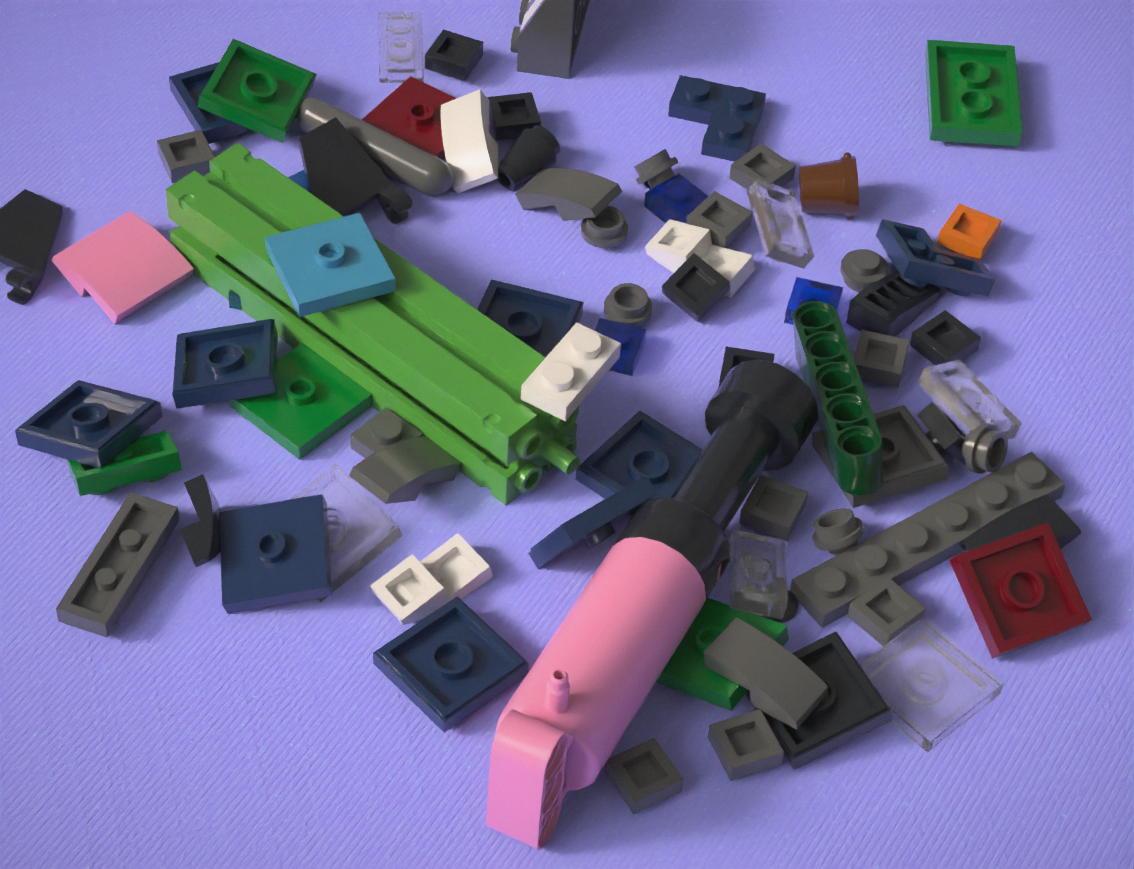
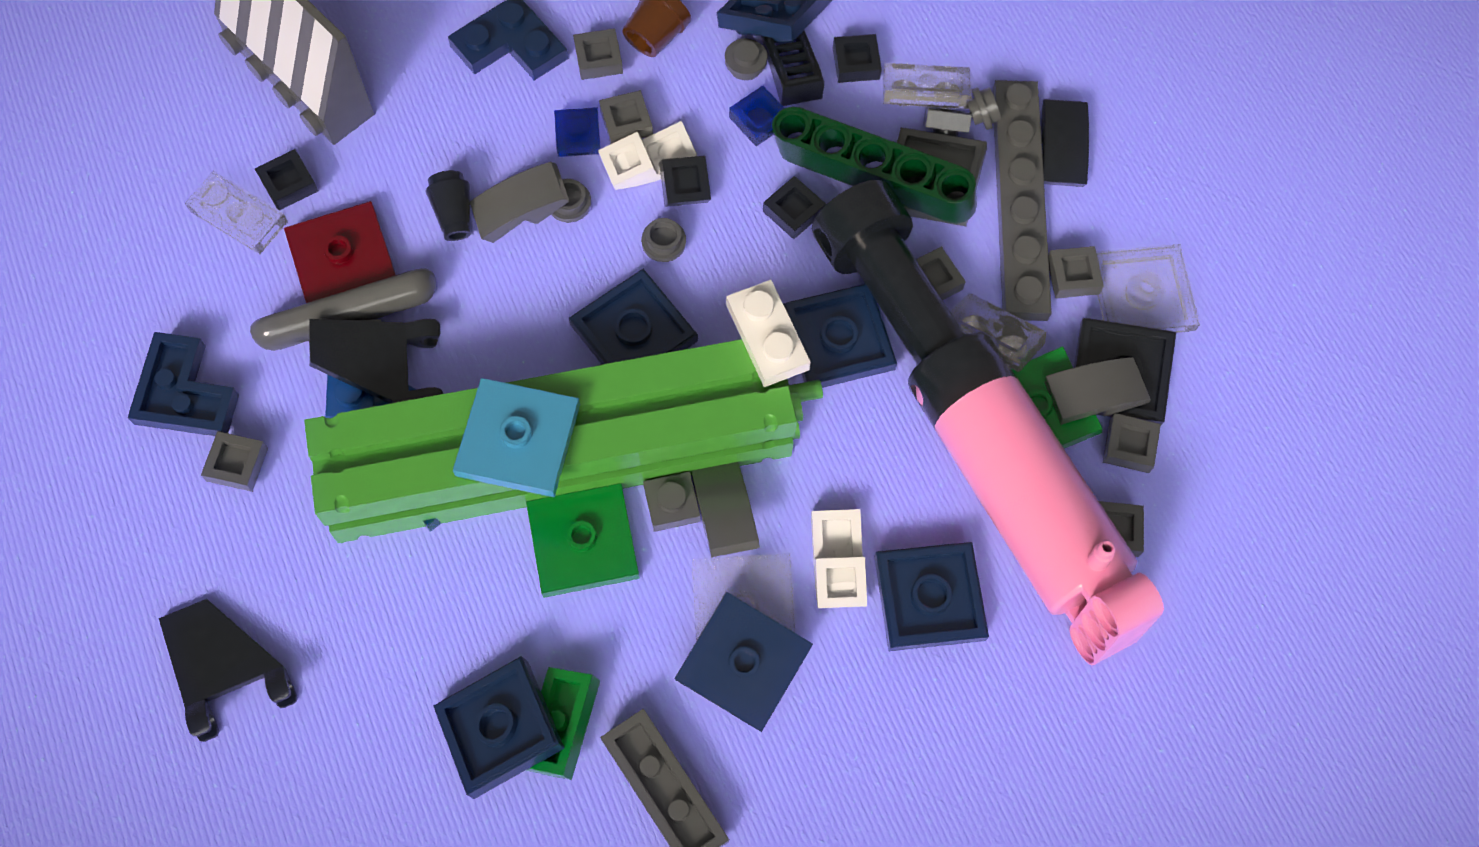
camera: 55 degrees left, 20 degrees up
(123, 266) = (324, 590): bright pink slope -> none
(203, 536) = (696, 710): black slope -> none
(225, 363) = (508, 576): dark blue plate -> none
(257, 90) = (212, 358): green plate -> none
(467, 141) = (403, 234): white slope -> none
(512, 114) = (395, 182): black plate -> none
(592, 524) = (885, 412): dark blue plate -> none
(631, 340) = (695, 275): clear blue plate -> none
(656, 169) = (537, 122): dark grey plate -> none
(780, 224) = (663, 80): clear plate -> none
(837, 531) = (984, 252): dark grey plate -> none
(881, 358) = (844, 105): dark grey plate -> none
(1020, 590) = (1120, 177): dark red plate -> none

